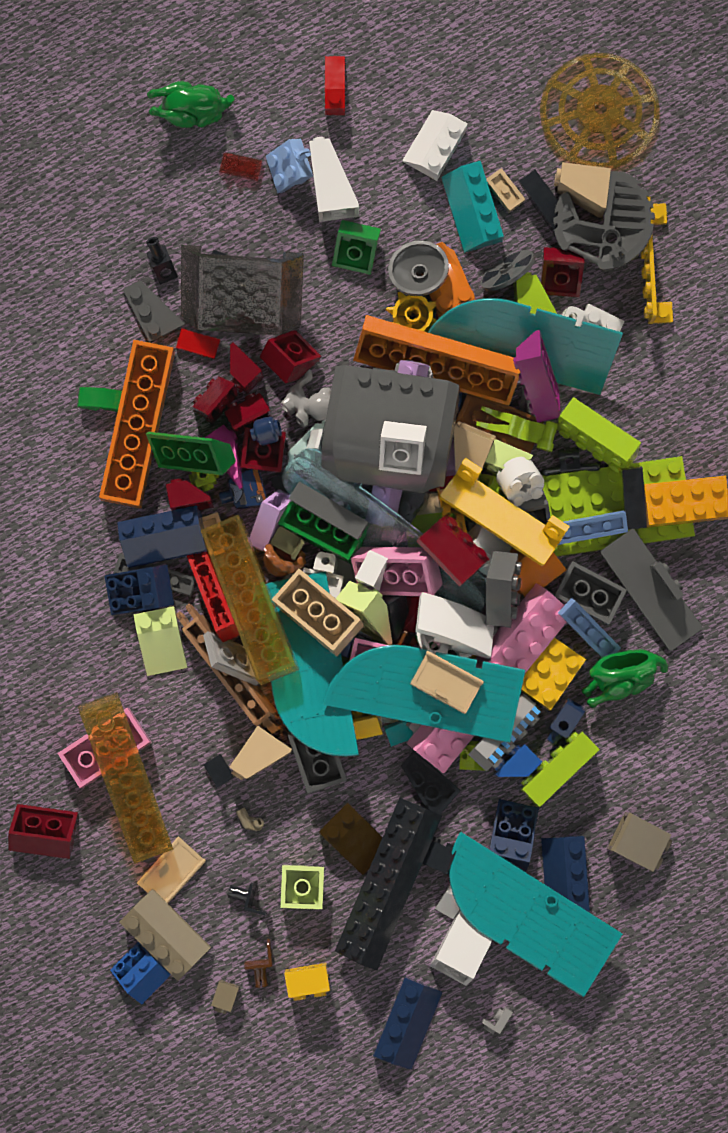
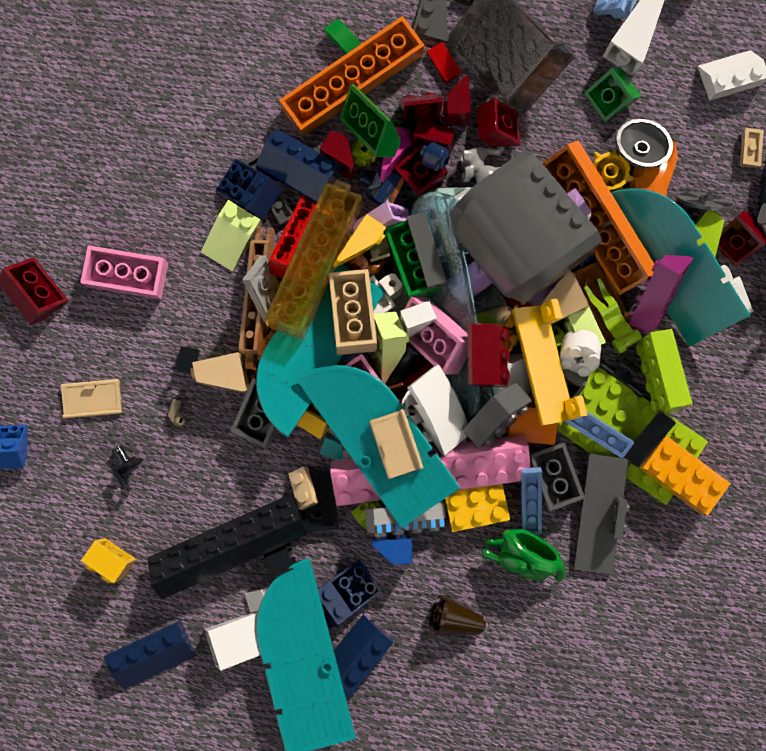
camera: 40 degrees right, 0 degrees up
(125, 777) = (115, 302): clear yellow brick -> none
(165, 934) = (44, 437): dark tan slope -> none
(225, 997) = (45, 517): dark tan brick -> none
(259, 967) = (89, 519): reddish brown bracket -> none
(271, 544) = (364, 238): none -> yellow slope
(302, 887) = (166, 492): yellowish green slope -> none
(352, 838) = (233, 490): dark brown slope -> none
(402, 447) = (520, 245): white slope -> none
(404, 784) = (303, 488): none -> tan plate
(472, 207) = (719, 138): teal slope -> none
(501, 1018) = (218, 713): light grey bracket -> none
(559, 768) = (420, 578): lime brick -> none
(569, 712) = (464, 547): dark blue torso -> none
(614, 774) = (454, 619): none -> dark brown cone
(640, 841) = (428, 683): dark tan slope -> none

